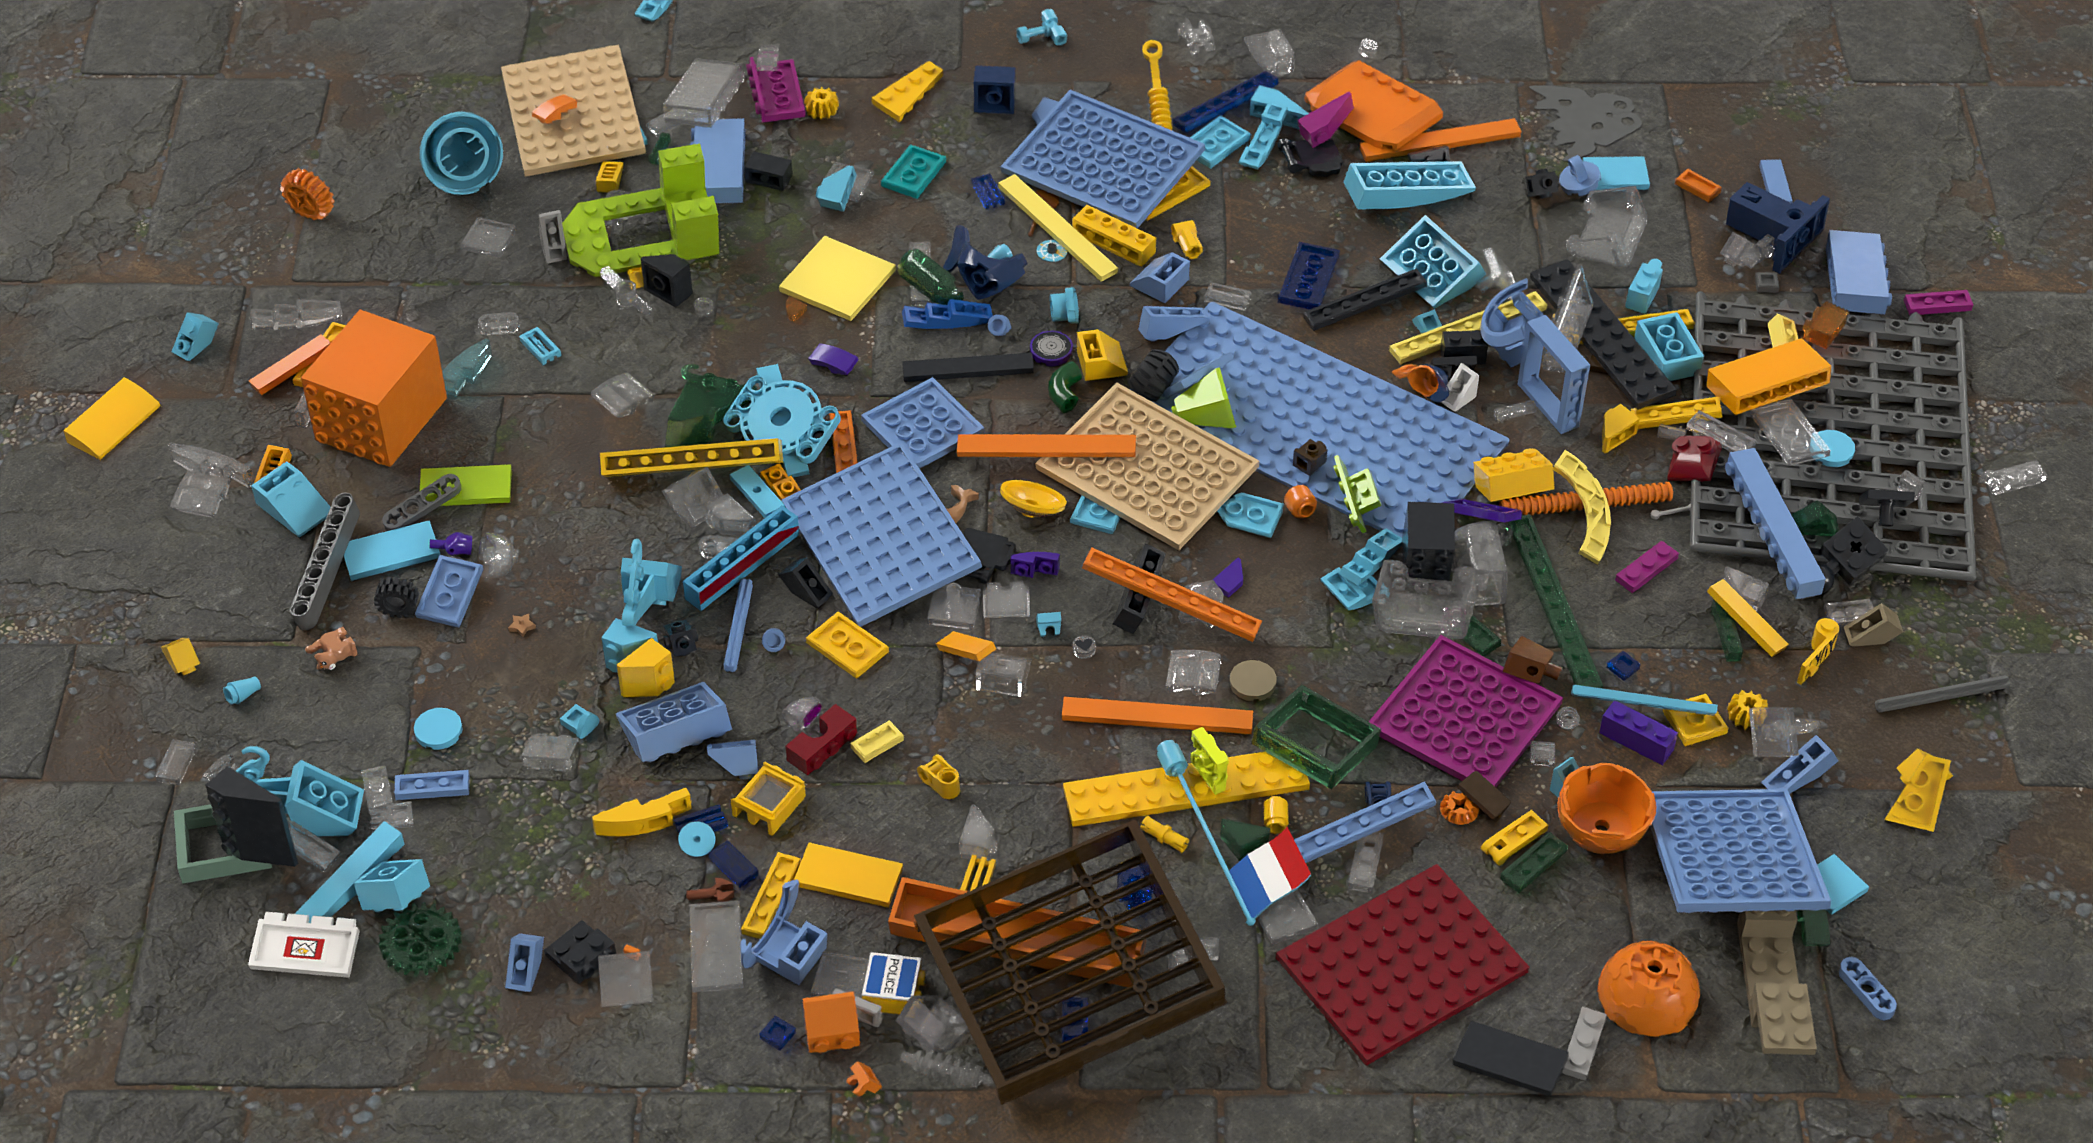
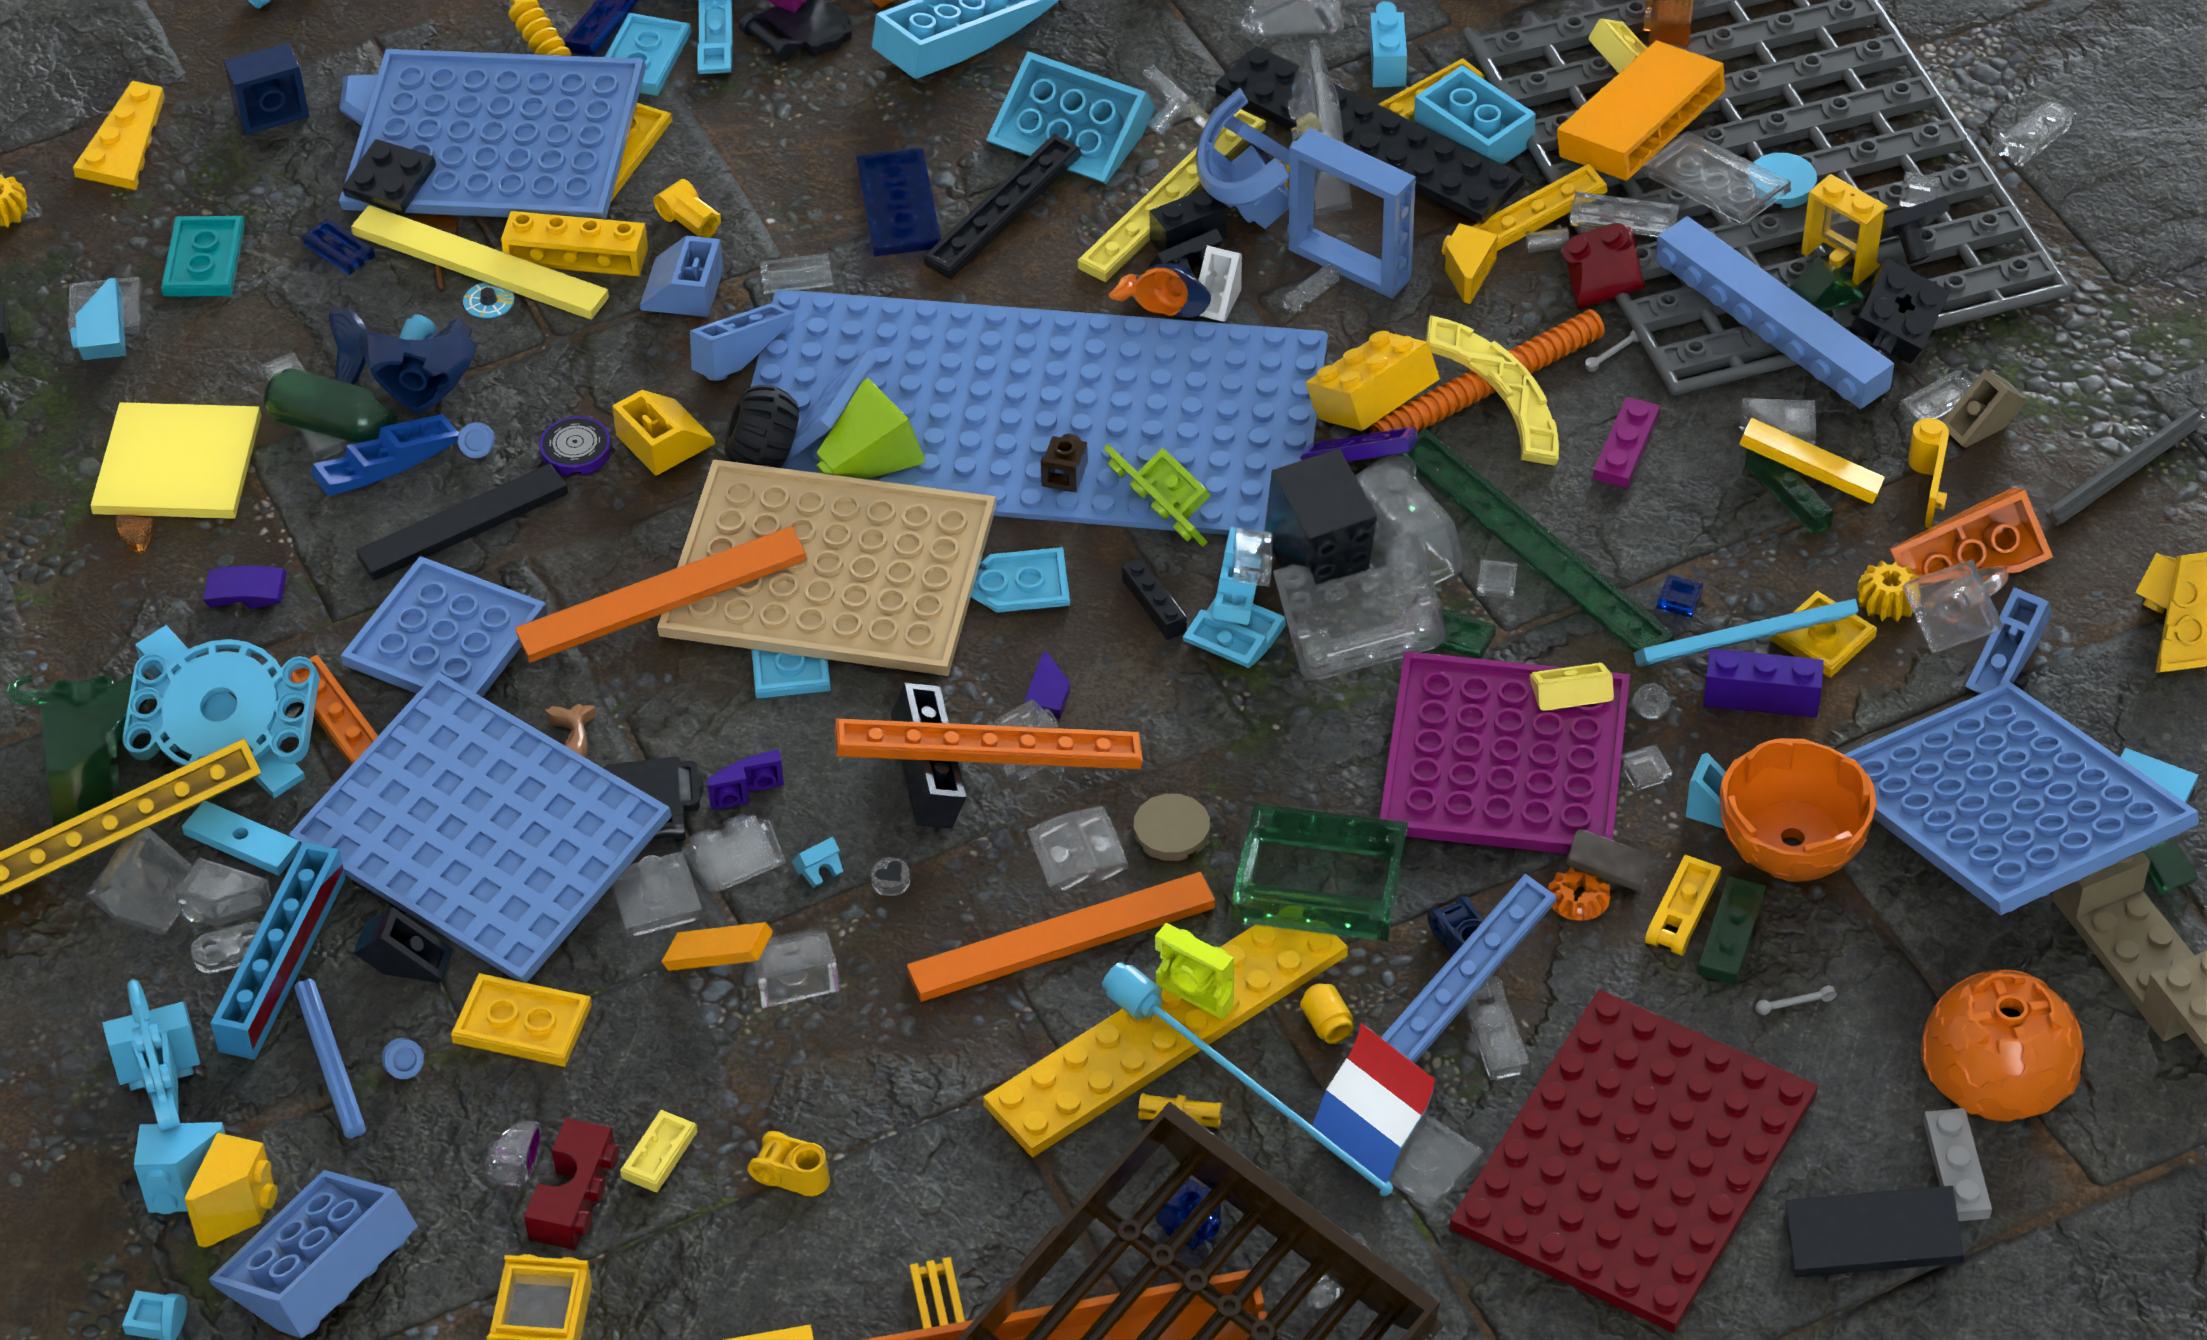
camera: 25 degrees left, 0 degrees up
(680, 638) = (252, 1114): black brick -> none
(736, 757) = (452, 1264): medium blue slope -> none
(779, 481) = (267, 808): light orange slope -> none
(977, 836) = (903, 1232): clear slope -> none
(1032, 161) = (389, 176): none -> black plate
(1032, 498) = (686, 682): yellow dish -> none
(1060, 384) = (626, 500): dark green cylinder -> none
(1064, 306) = (563, 375): medium azure piece -> none
(1243, 837) = (1300, 1068): clear green slope -> none
(1300, 501) = (1087, 534): orange head -> none
(1318, 551) = (1154, 598): none -> black piece
(1382, 548) = (1252, 557): none -> clear slope
(1427, 321) = (1110, 207): medium azure slope -> none
(1522, 615) = (1497, 579): none -> clear tile
(1523, 691) = (1572, 686): none -> light yellow slope
(1531, 662) = (1557, 639): reddish brown torso -> none
(1568, 919) = (1826, 994): none -> light grey hinge
(1830, 702) = (1991, 533): none -> orange wedge
(1848, 483) = (1846, 222): none -> yellow window

